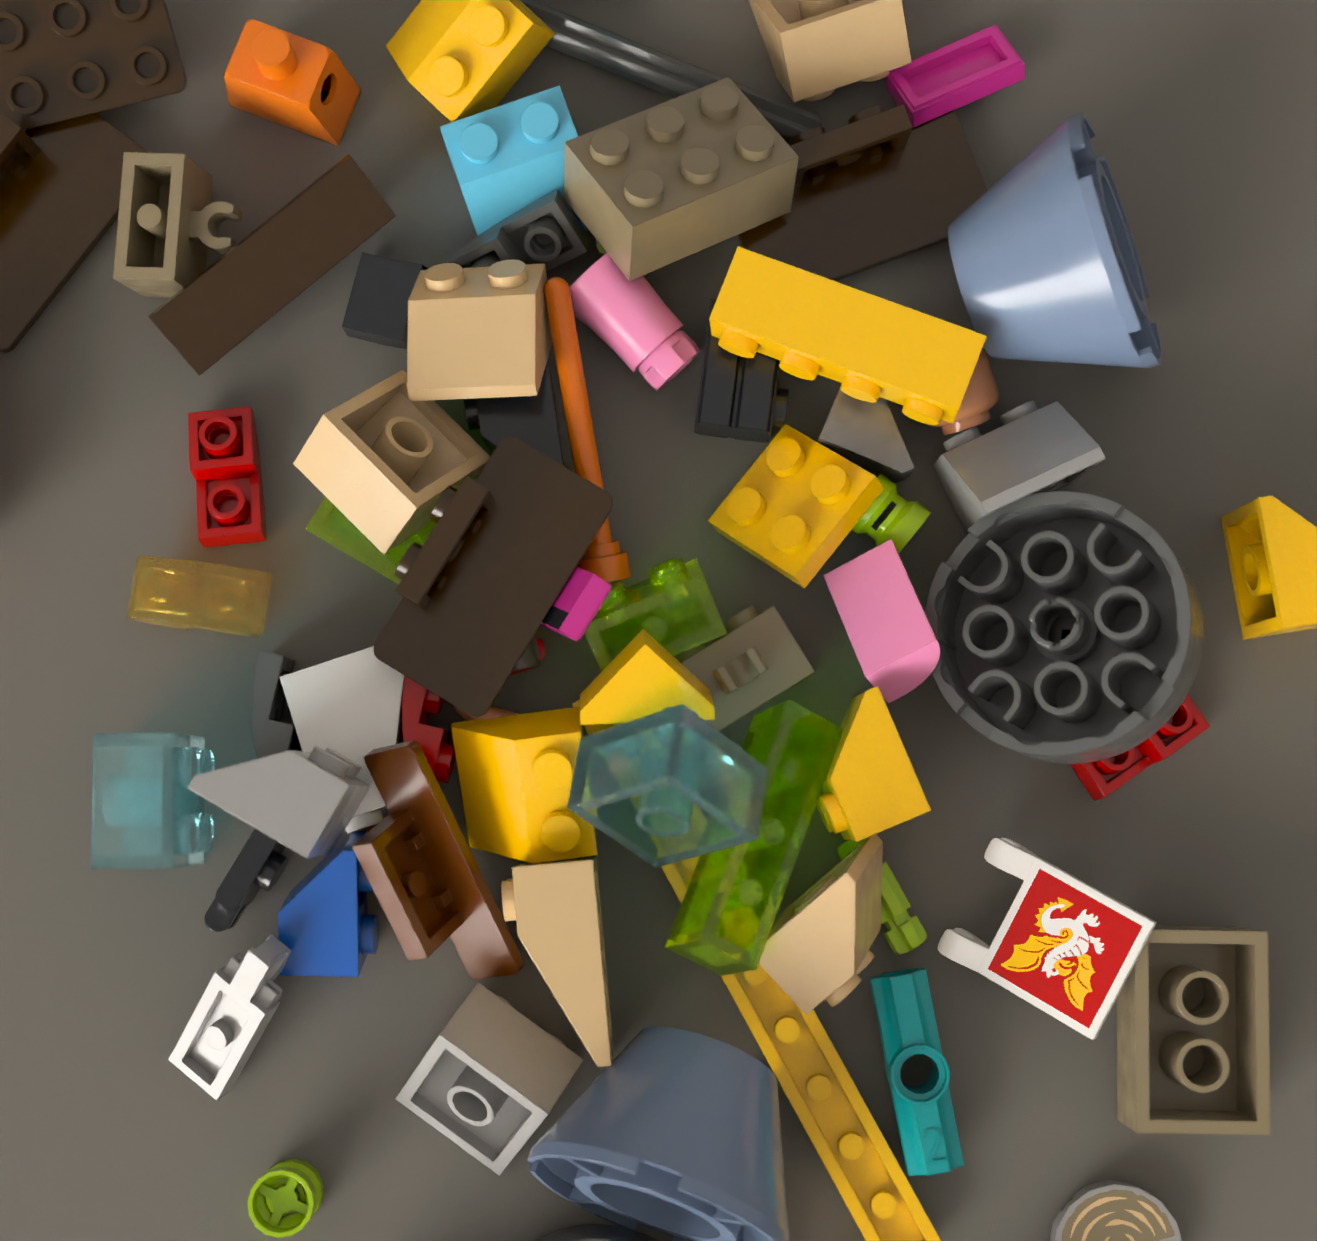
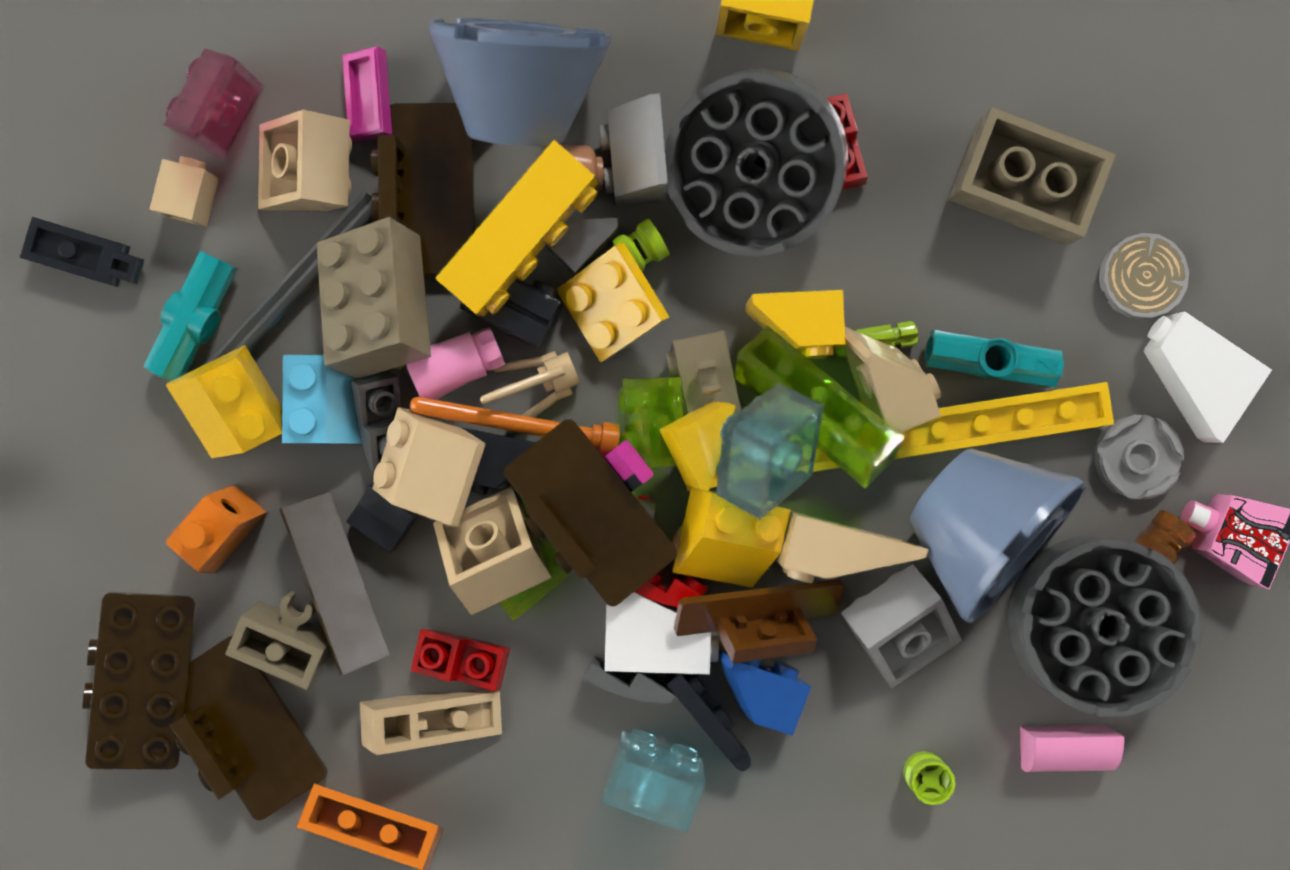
camera: 65 degrees left, 5 degrees up
(127, 461) = (428, 720): none -> tan slope
(199, 596) = (532, 703): clear yellow slope -> none
(231, 1018) = (808, 774): hinge -> none
(290, 796) = (689, 692): light grey slope -> none
(668, 464) = (556, 374): none -> tan plant
(884, 621) = (708, 274): bright pink brick -> none
(1058, 944) = (949, 241): flag -> none

